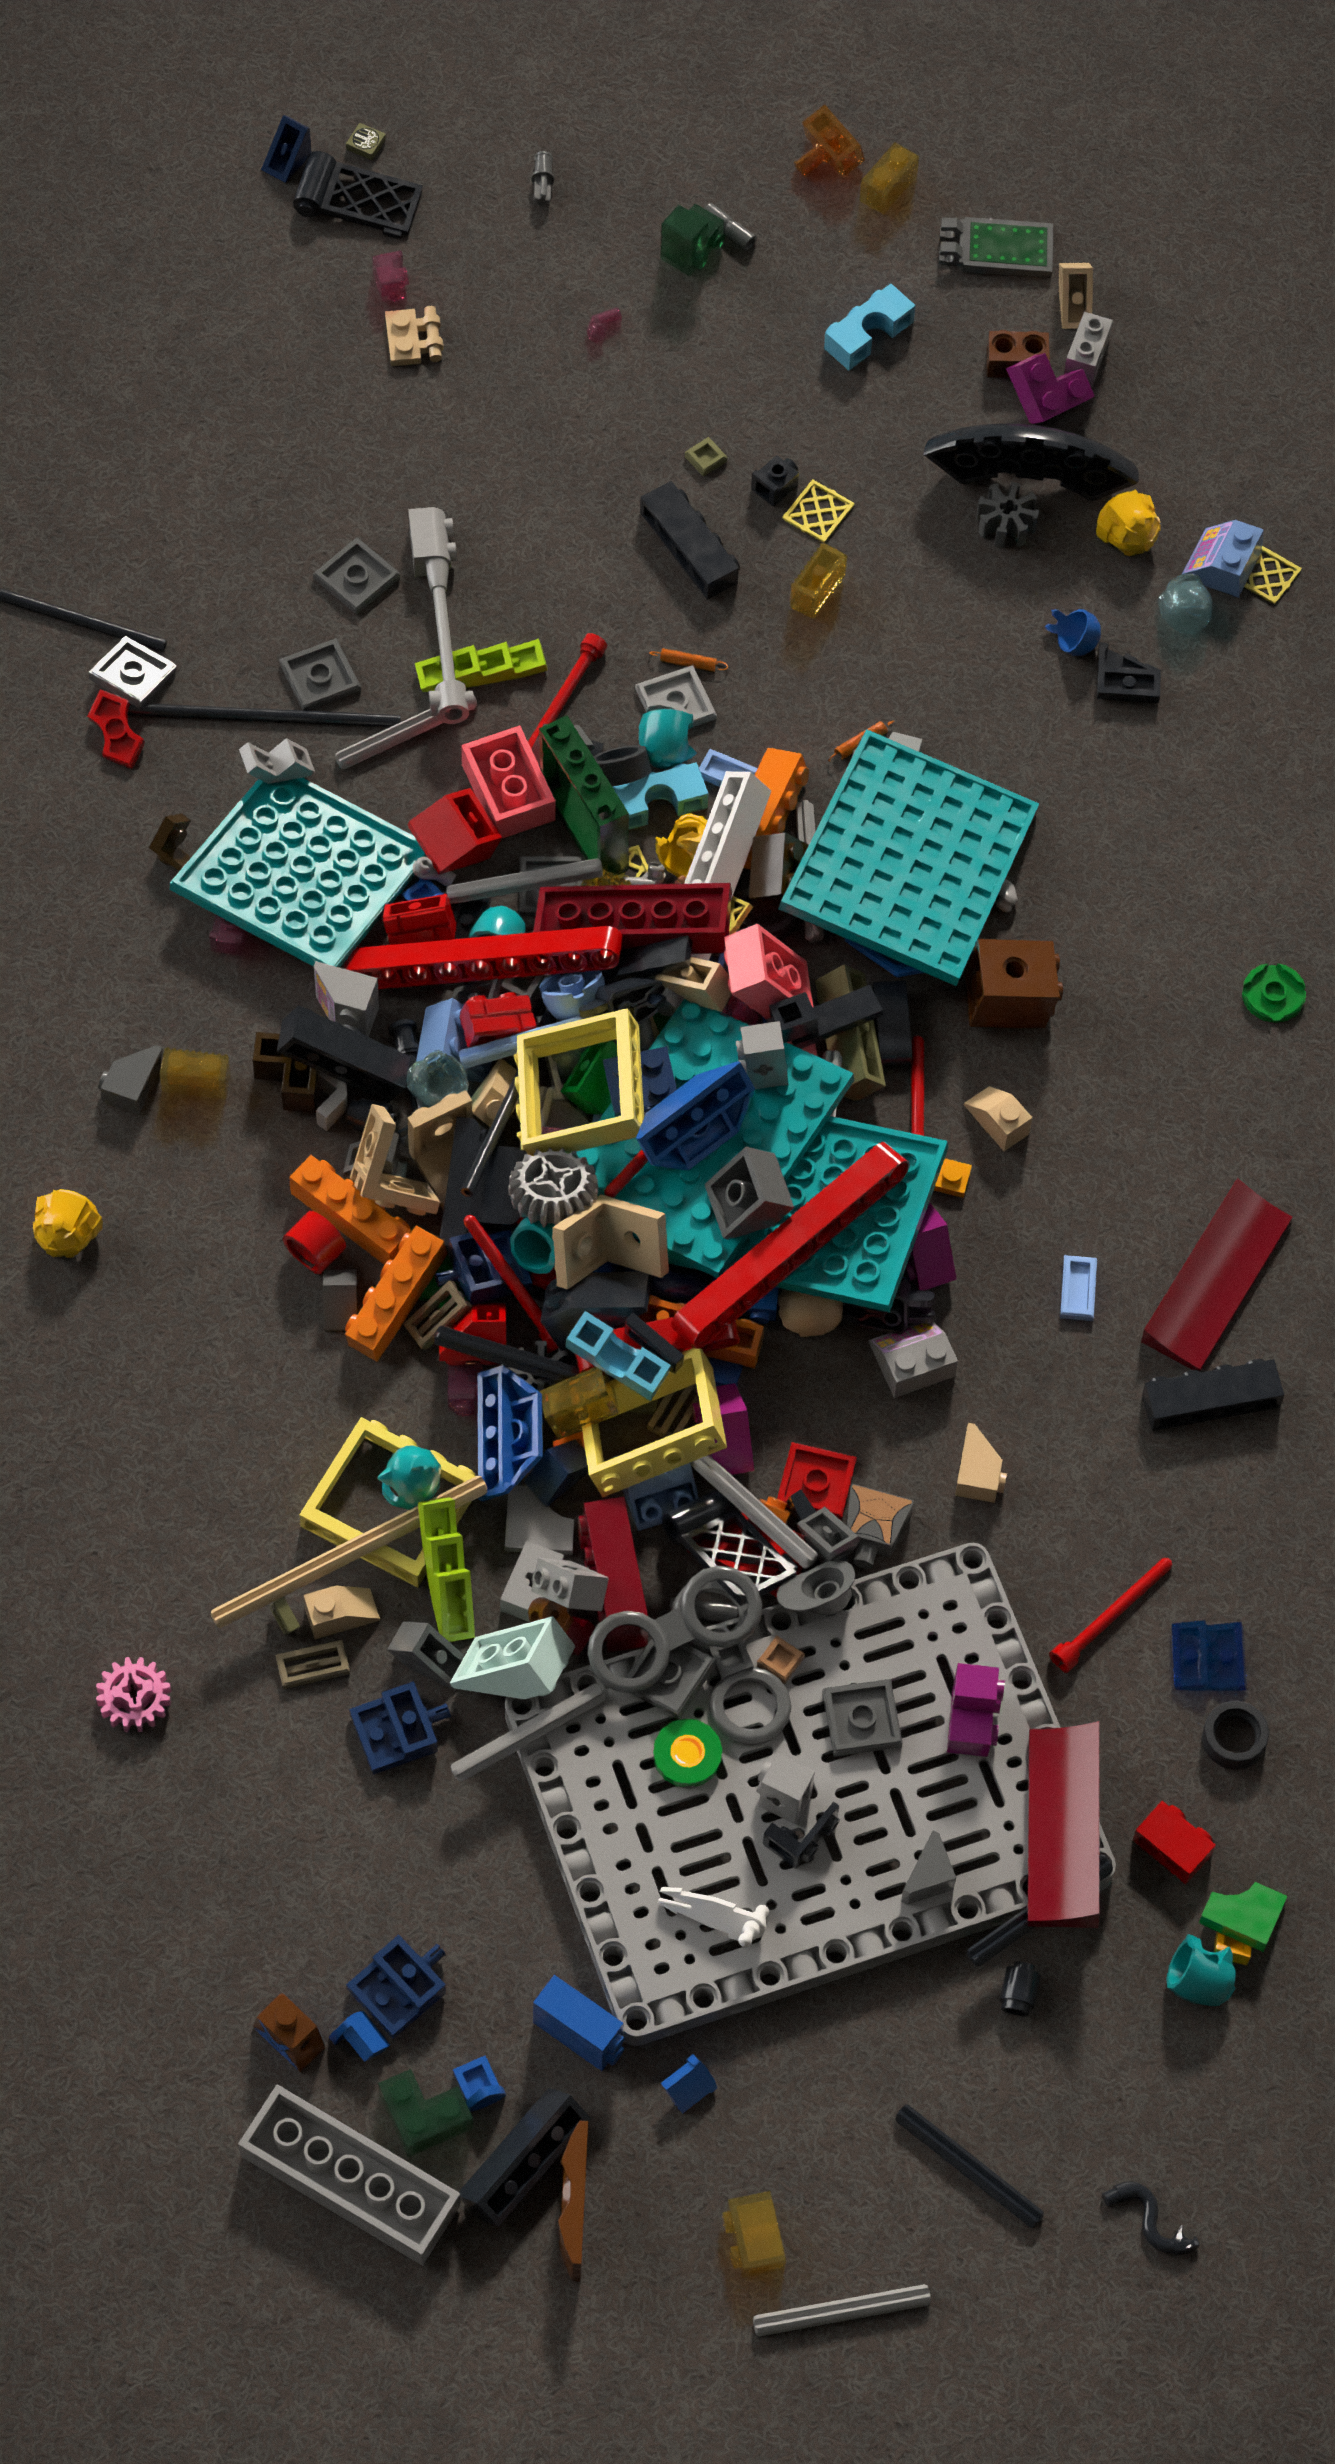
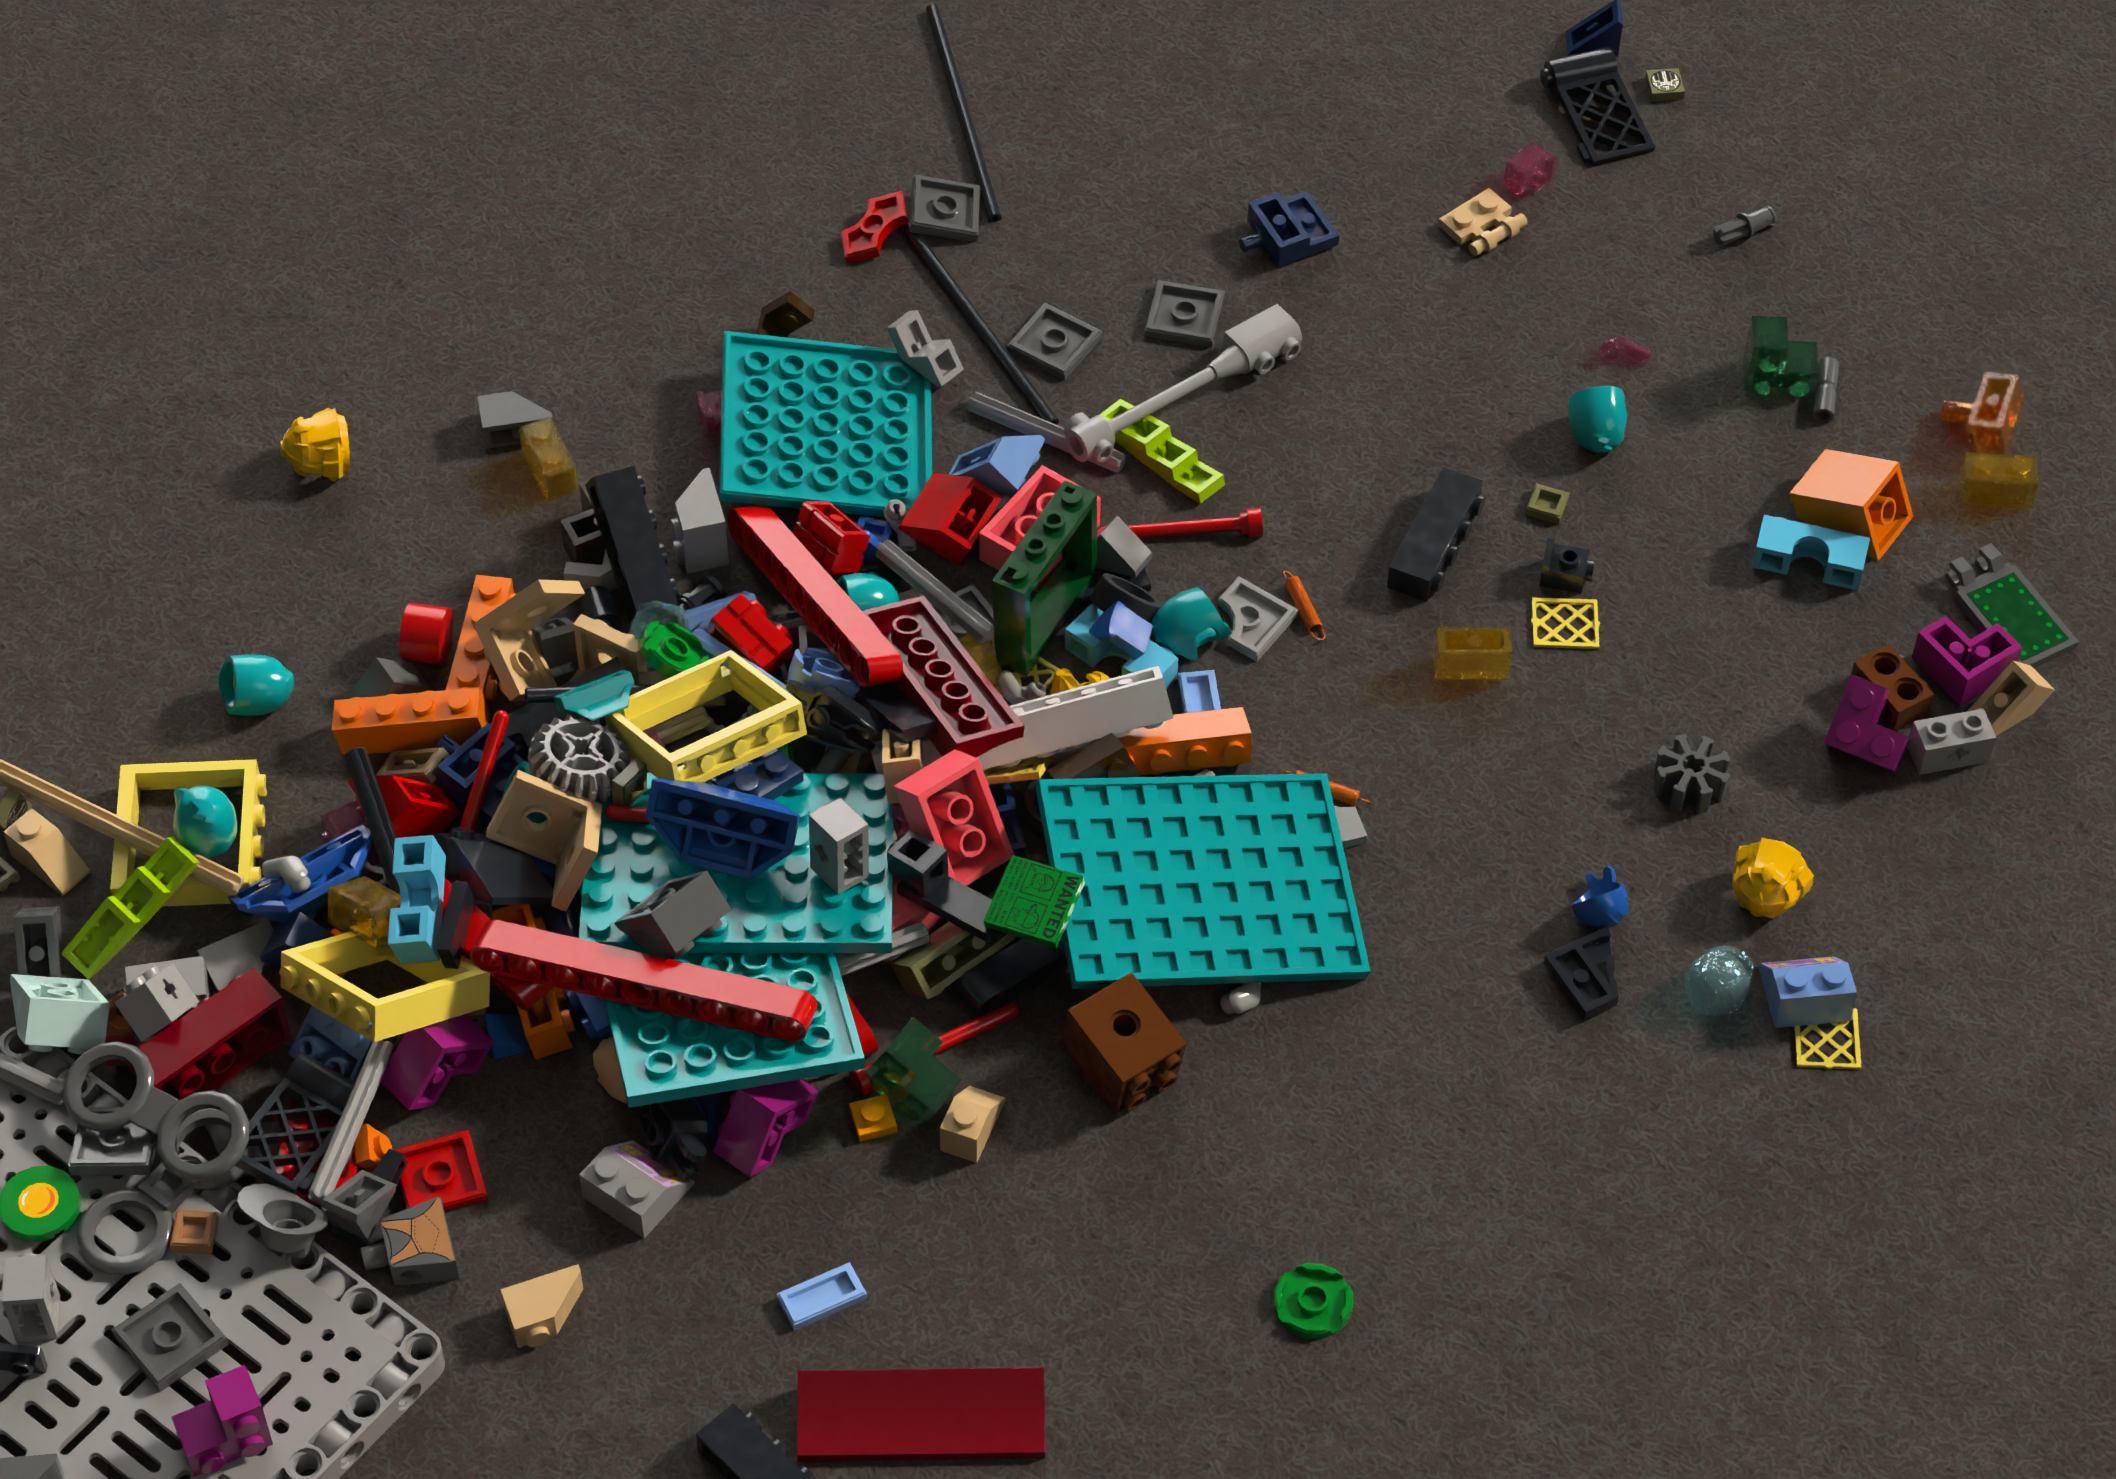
camera: 60 degrees right, 10 degrees down
(281, 1373) = (260, 684): none -> teal piece
(328, 459) = (1288, 227): none -> dark blue plate
(433, 774) = (1001, 463): none -> medium blue slope
(482, 1077) = (670, 648): none -> green tile
(504, 1436) = (291, 871): none -> light grey arm
(506, 1142) = (597, 697): none -> teal slope
(602, 1170) = (630, 784): none -> olive tile
(653, 780) = (1123, 629): none -> tile
(664, 377) = (1598, 418): none -> teal piece
(841, 272) = (1855, 497): none -> orange slope
(881, 964) = (1034, 901): none -> green tile
(951, 1119) = (912, 1073): none -> clear green brick
(1030, 300) = (1964, 664): none -> magenta brick
(1032, 453) = (1769, 748): black brick -> none

